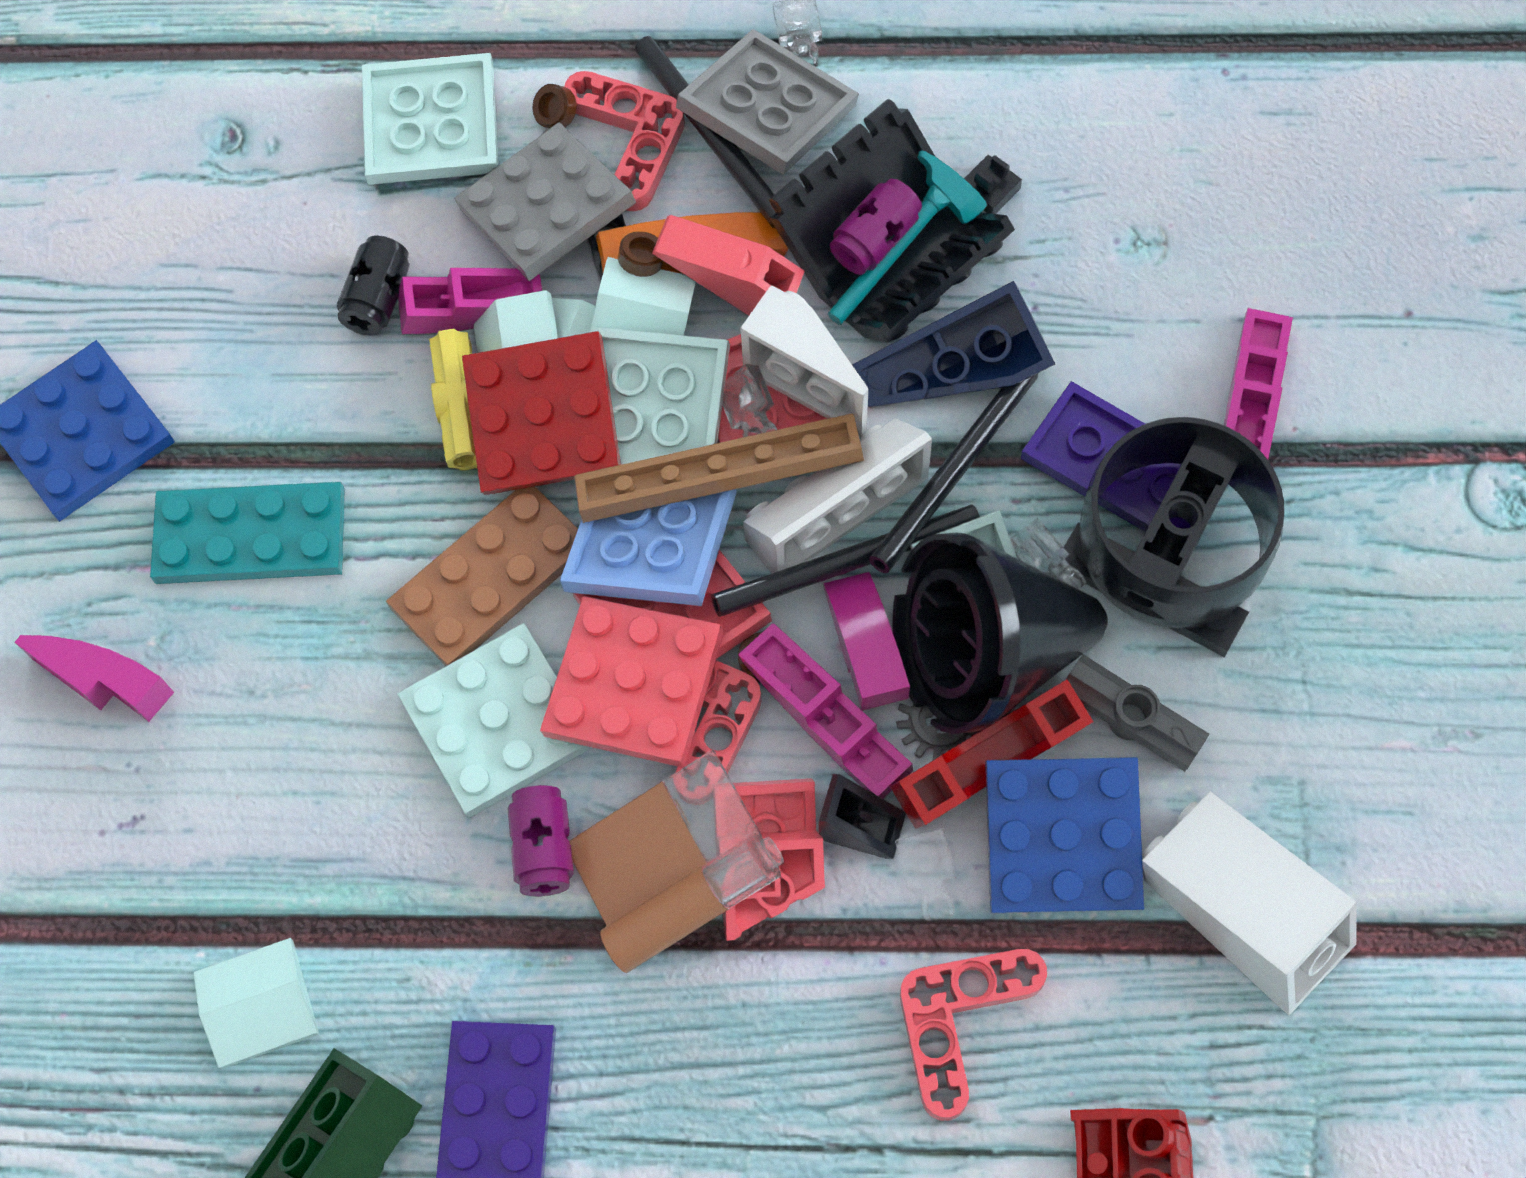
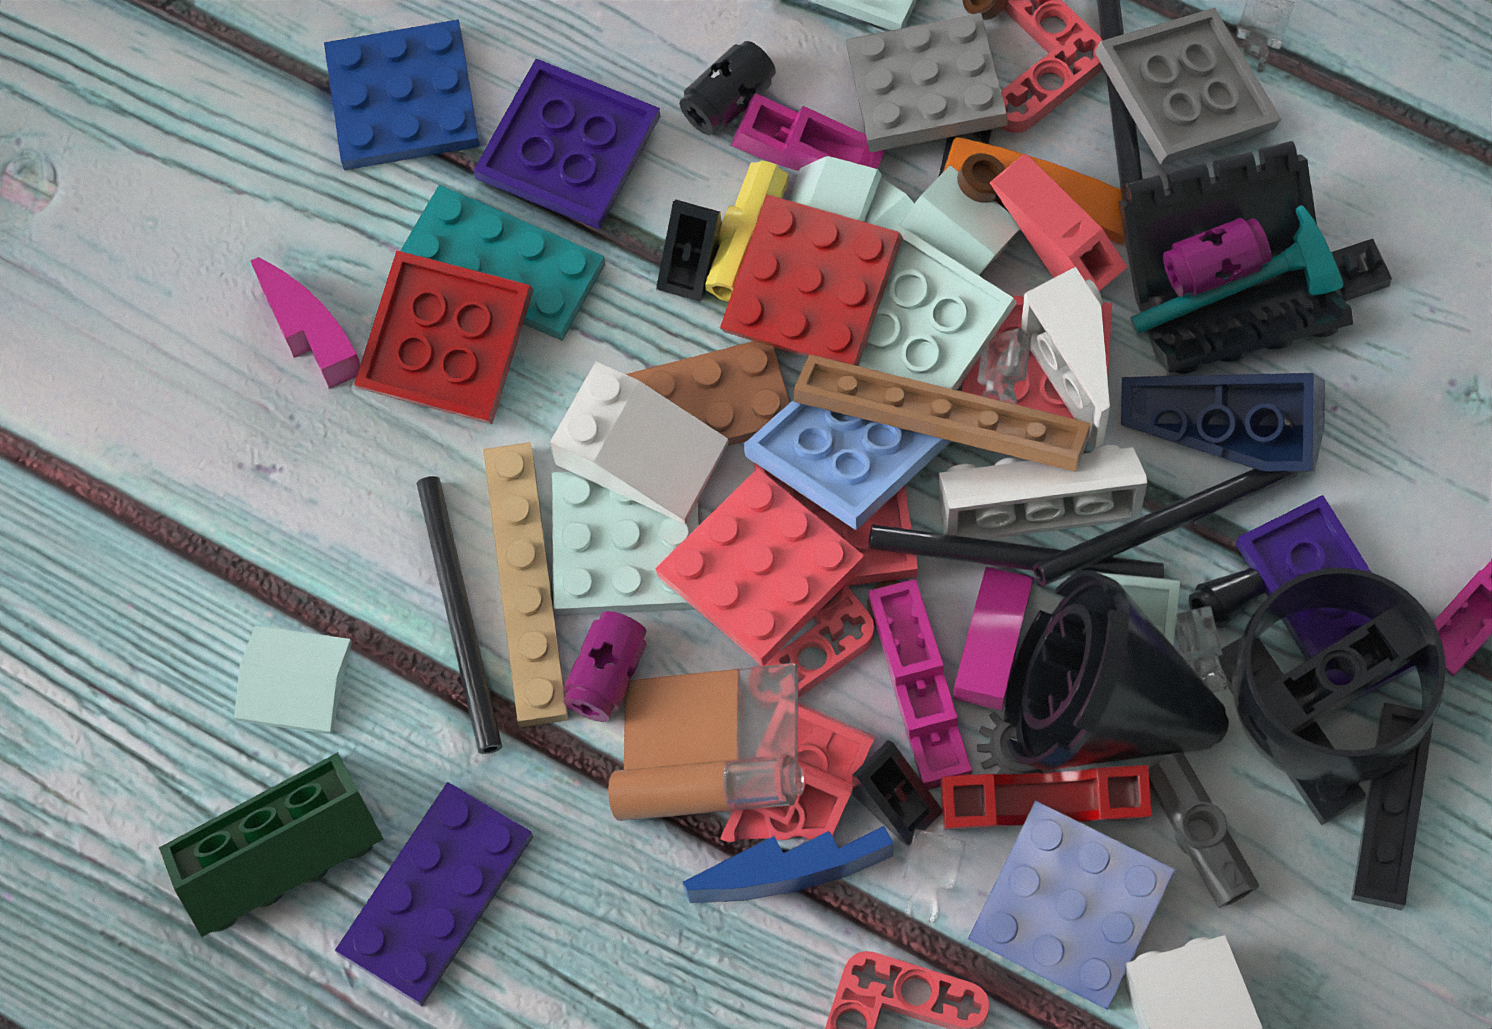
camera: 30 degrees right, 0 degrees up
(233, 622) = (444, 337): none -> red plate
(254, 401) = (567, 143): none -> dark purple plate
(381, 864) = (459, 615): none -> black piece
(416, 439) = (689, 250): none -> black slope
(427, 806) = (525, 585): none -> tan plate
(463, 628) = (637, 443): none -> white slope
(789, 945) = (770, 872): none -> blue slope
(1040, 502) = (1228, 595): none -> black cone
(1279, 619) = (1391, 817): none -> black plate

